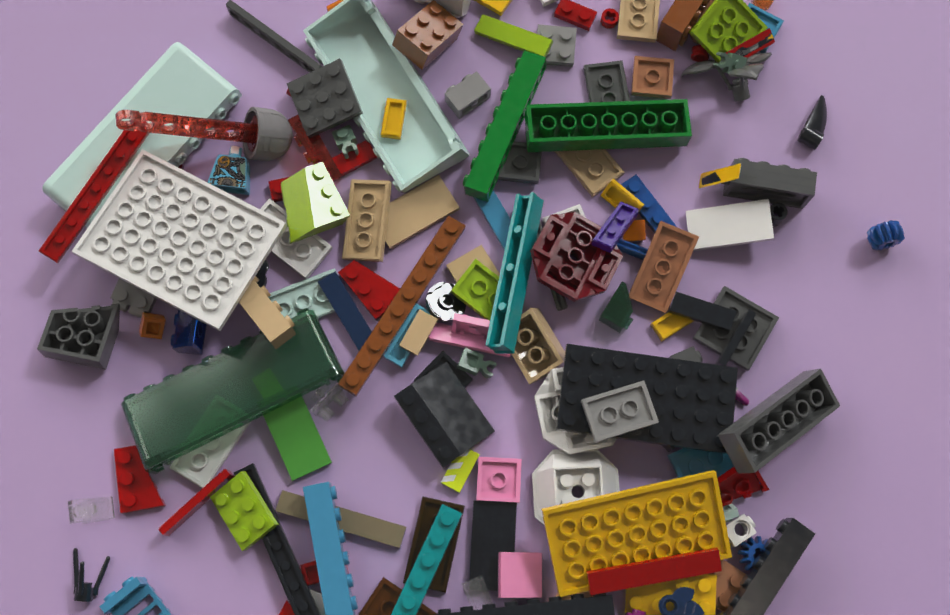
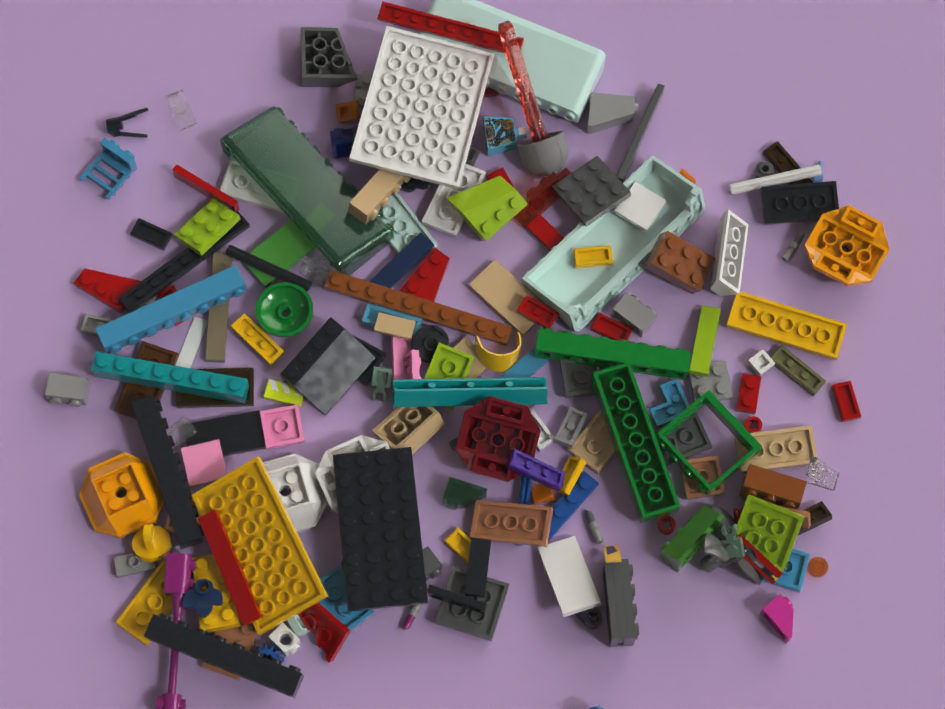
camera: 75 degrees right, 5 degrees down
(135, 485) = (206, 139): red wing -> none
(231, 577) = (151, 234): none -> black tile
(238, 61) = (610, 111): none -> light grey slope
(313, 452) = (268, 267): none -> black axle
(345, 140) = (559, 220): sand green plate -> none
(354, 438) = (280, 299): none -> green dish
(357, 57) = (641, 207): none -> white tile
(367, 220) = (488, 258): tan tile -> none
(374, 559) = (192, 342): none -> white sticker
(391, 484) = (257, 339): none -> yellow plate
(442, 184) = (537, 312): none -> red plate
(475, 122) = (610, 328): none -> red tile
(483, 243) = (498, 362): none -> yellow piece
(572, 81) = (675, 403): none -> dark azure plate
(572, 185) = (571, 427): none -> light grey plate
(612, 30) = (729, 421): none -> green window
(619, 411) = (358, 501): light grey plate -> none
(678, 191) = (594, 527): none -> light grey piece
(695, 117) = (672, 524): none -> red bush
(717, 98) = (691, 537): none -> bright green wedge
(779, 421) = (388, 648): dark grey brick -> none
(807, 43) = (780, 616): none -> dark pink slope
(813, 130) = (696, 640): black piece -> none

